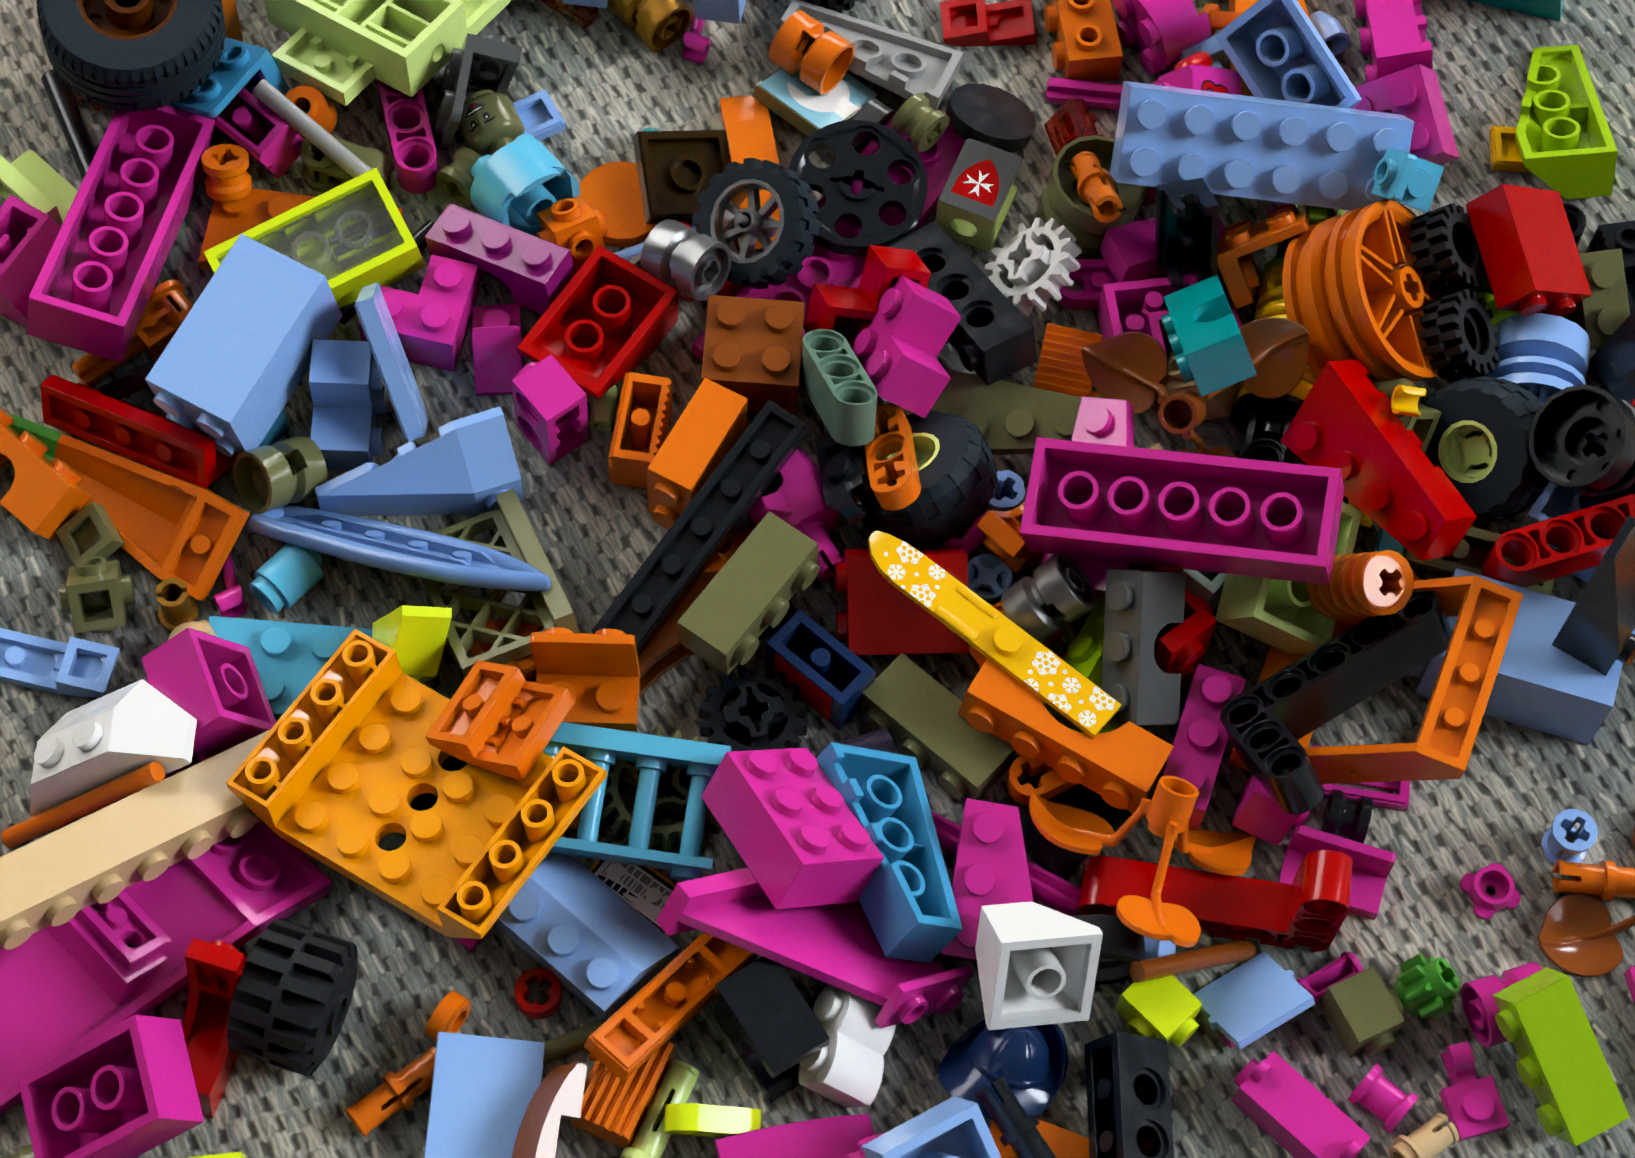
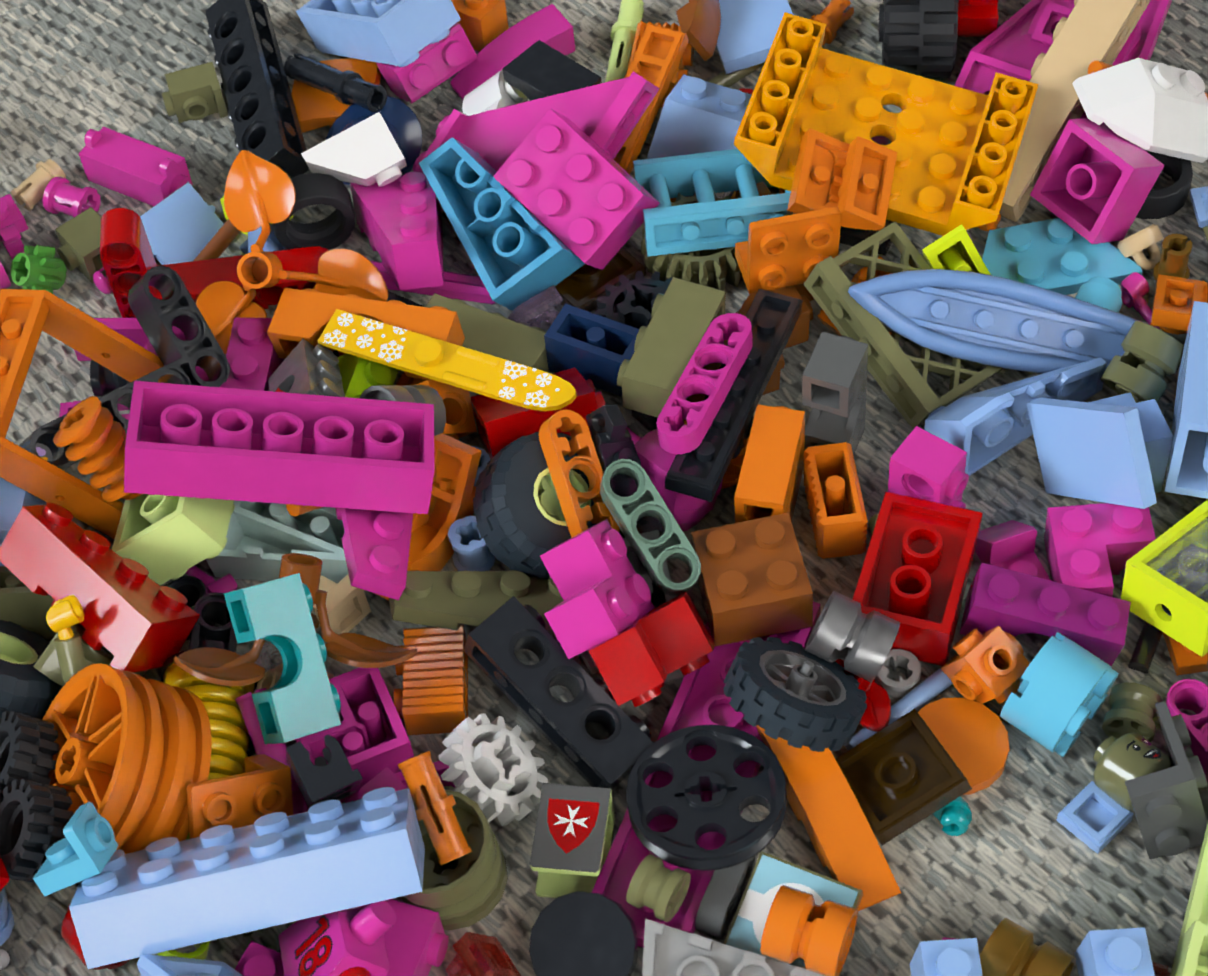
camera: 175 degrees right, 10 degrees down
(603, 494) = (836, 391): none -> dark grey arch
(710, 1120) = (580, 47): neon yellow beam -> none
(729, 514) = (697, 380): none -> dark pink beam

